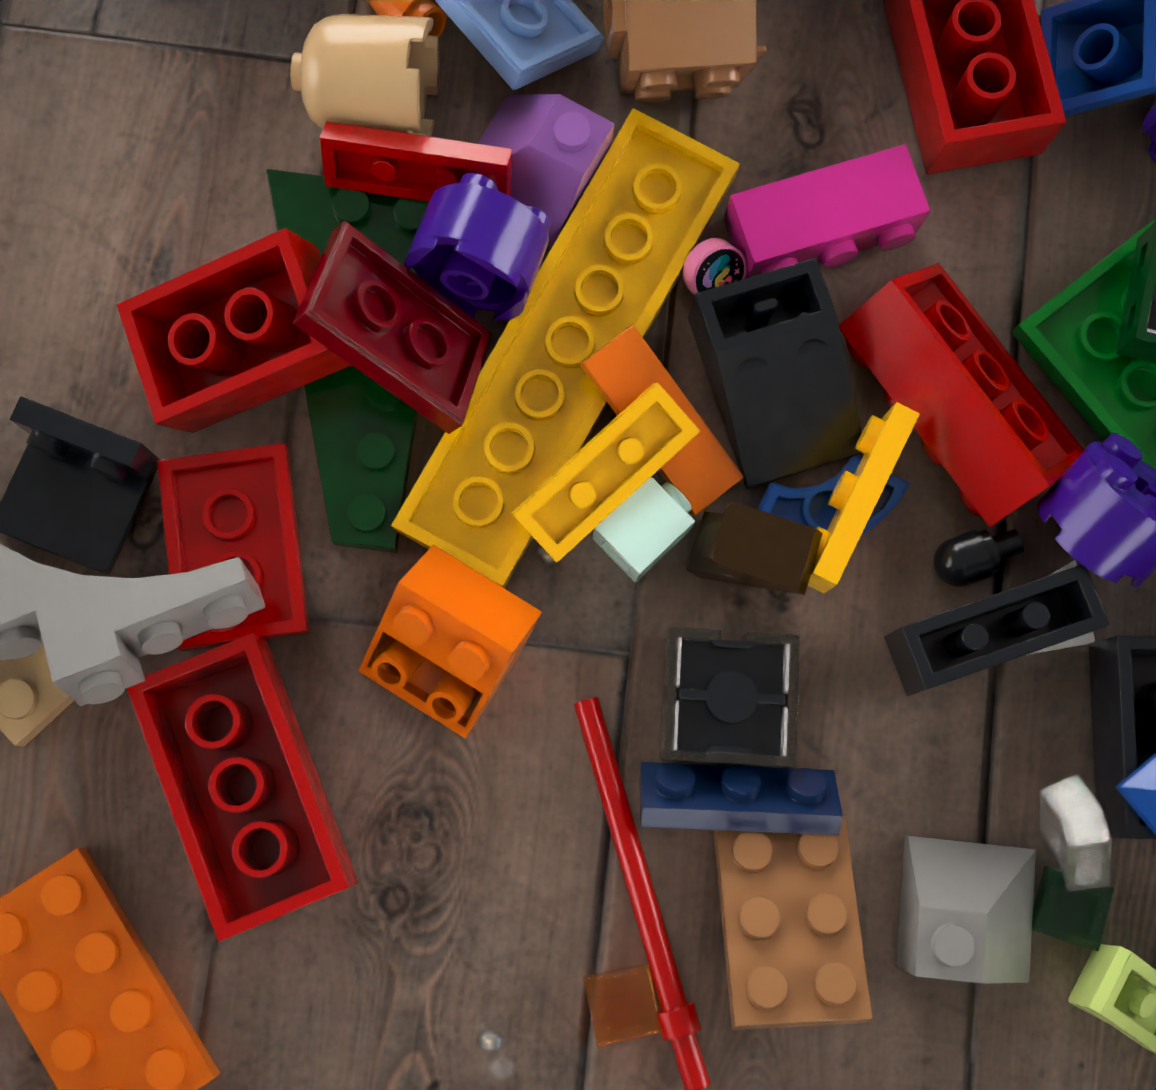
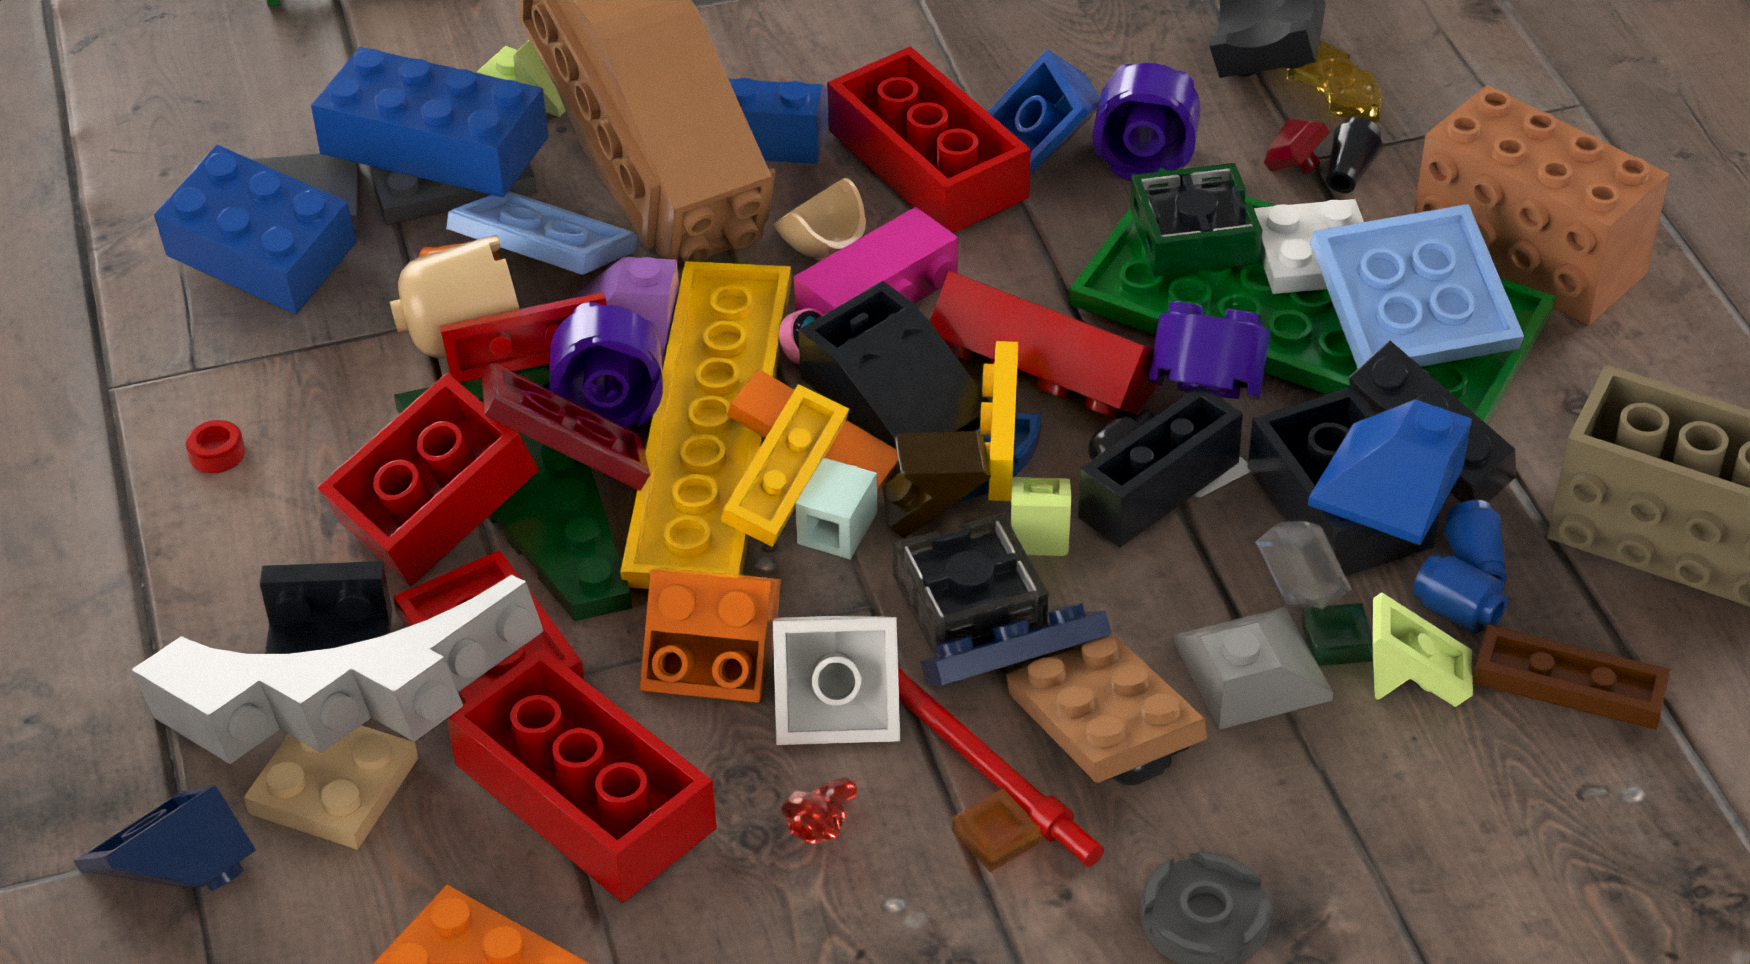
camera: 15 degrees left, 35 degrees down
(70, 158) = (215, 446): none -> red tile
(451, 922) = (819, 813): none -> clear red plate
(542, 758) = (836, 679): none -> white slope
(803, 109) = (825, 221): none -> tan helmet
(851, 622) = (1041, 514): none -> yellowish green slope

